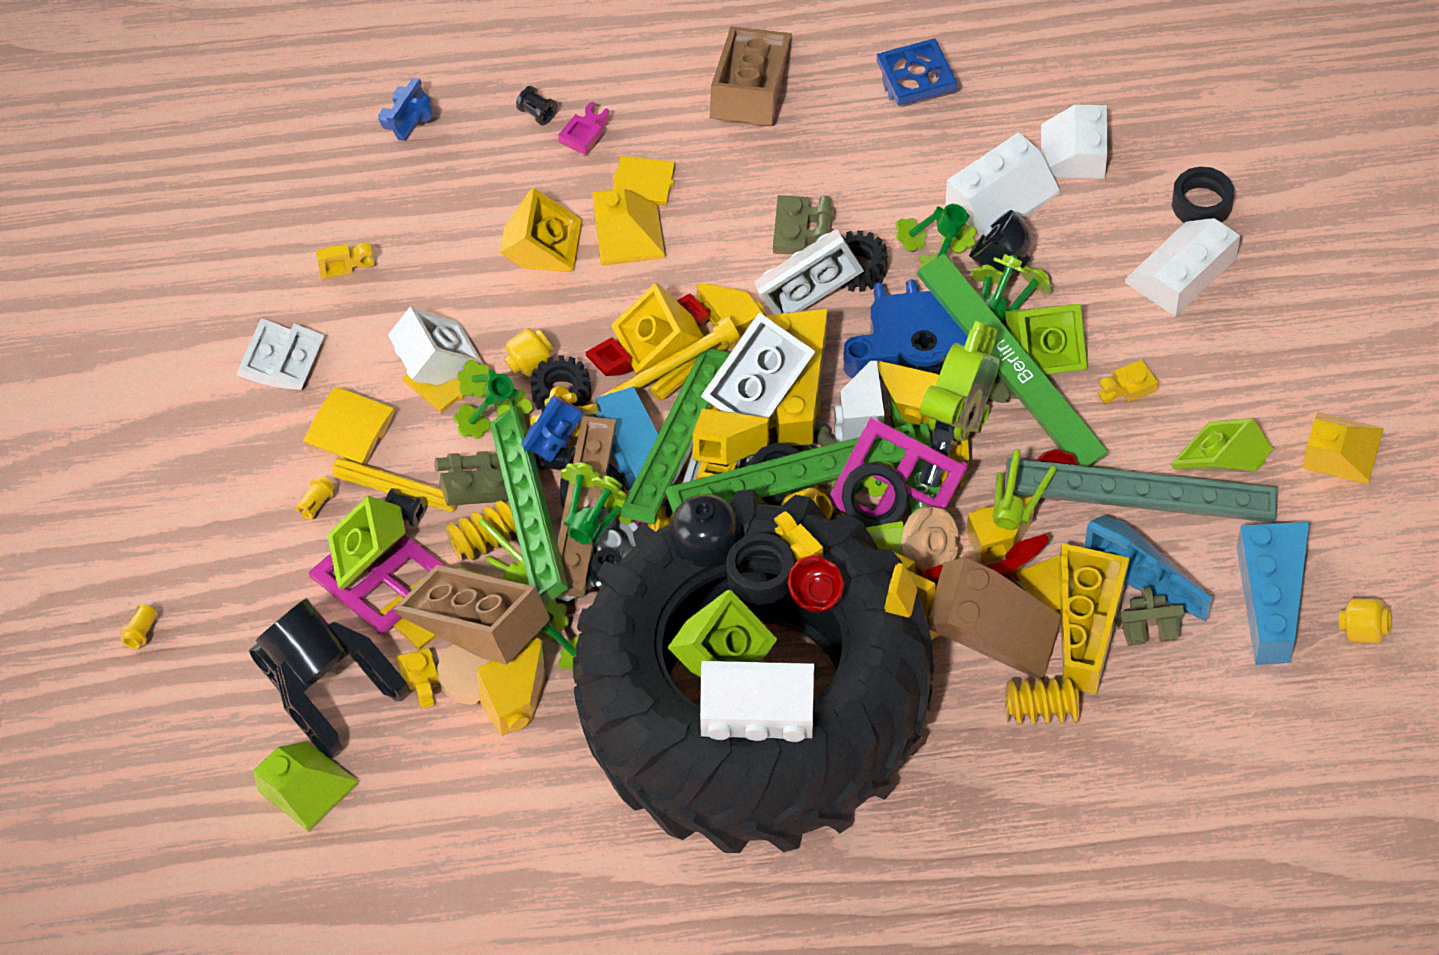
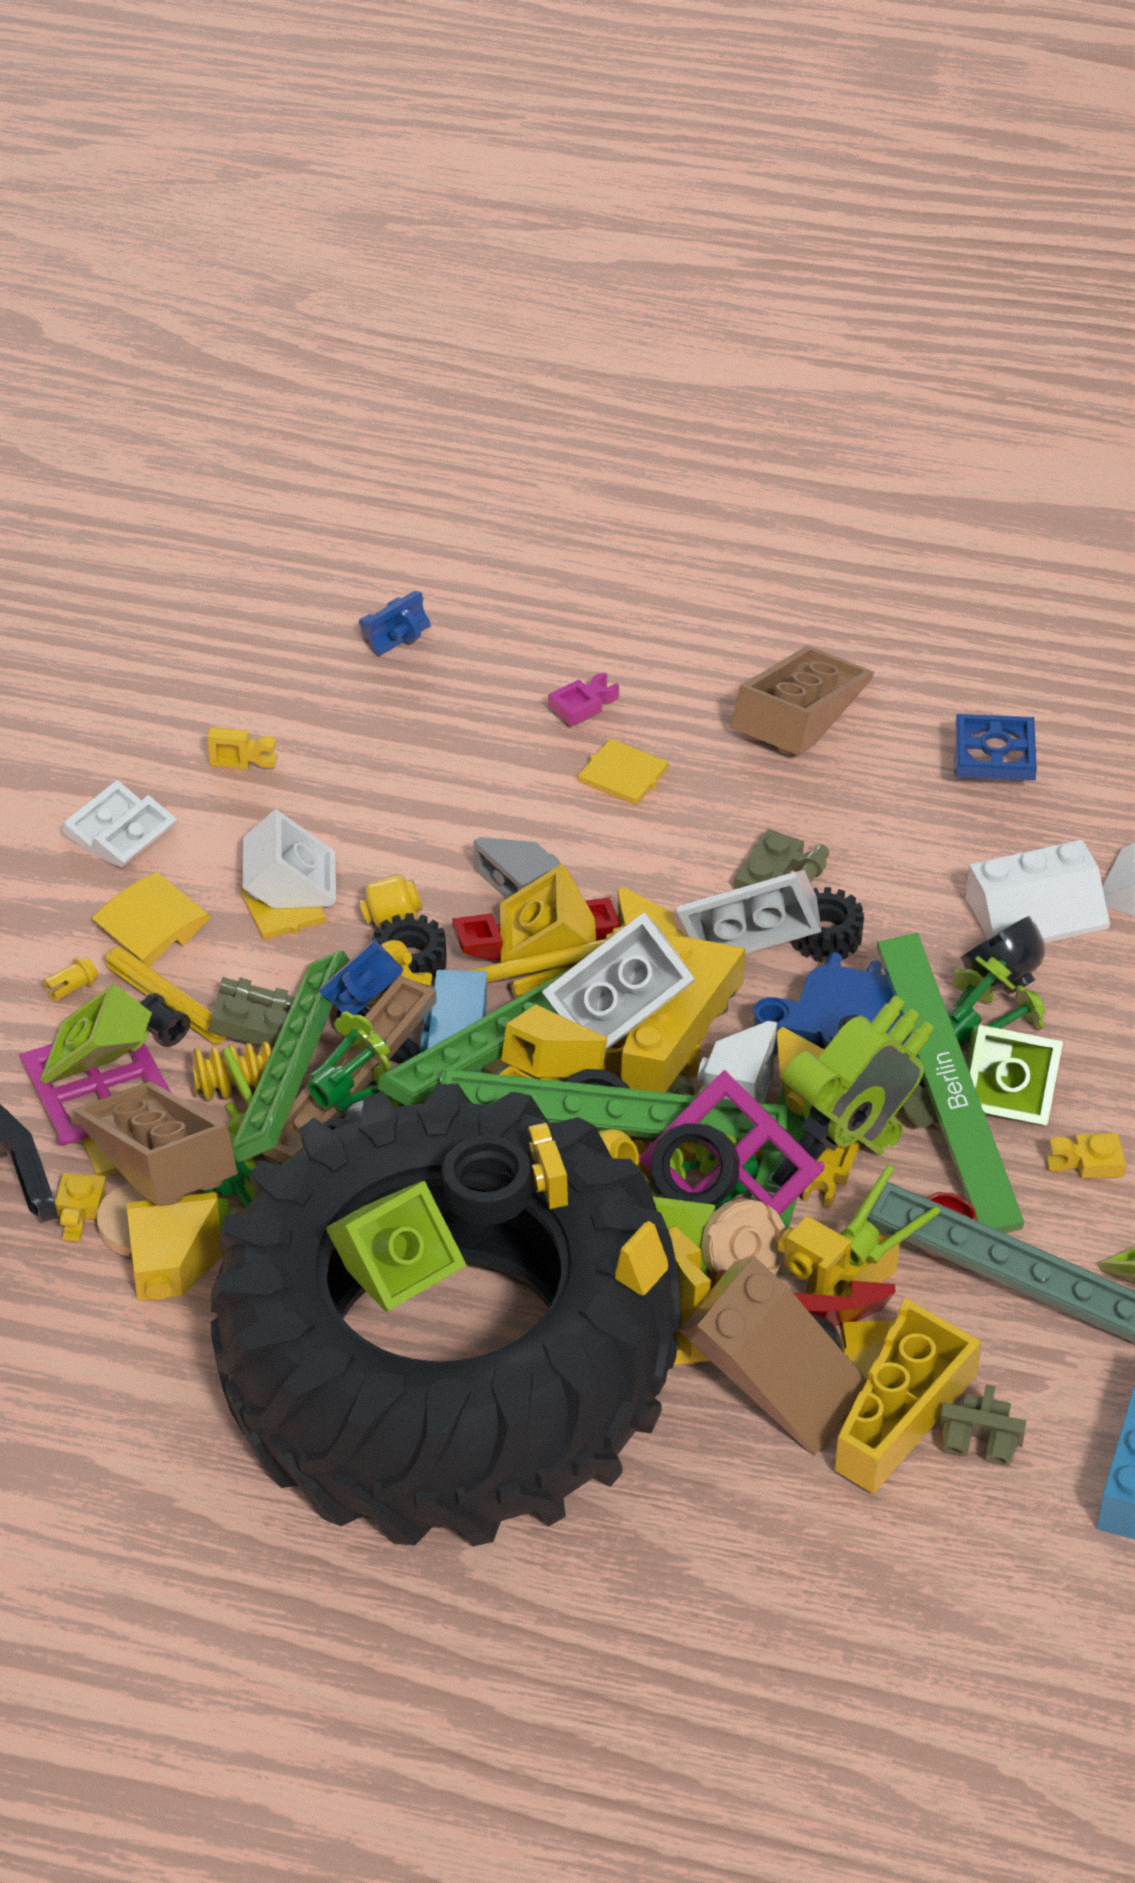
camera: 20 degrees right, 10 degrees down
(497, 390) = (320, 920): lime plant -> none
(536, 105) = (541, 660): black bush -> none
(541, 234) = (474, 788): yellow slope -> none
(607, 291) = (511, 863): none -> light grey slope
(626, 227) = (574, 809): yellow slope -> none
(704, 530) = (442, 1113): black cylinder -> none
(757, 700) = (395, 1318): white slope -> none
(815, 583) = (539, 1214): red hair -> none
(950, 224) = (951, 915): plant -> none
(985, 531) = (816, 1253): none -> yellow brick
(1042, 701) = (797, 1477): yellow piece -> none
(1147, 566) = (1005, 1361): dark azure wedge -> none

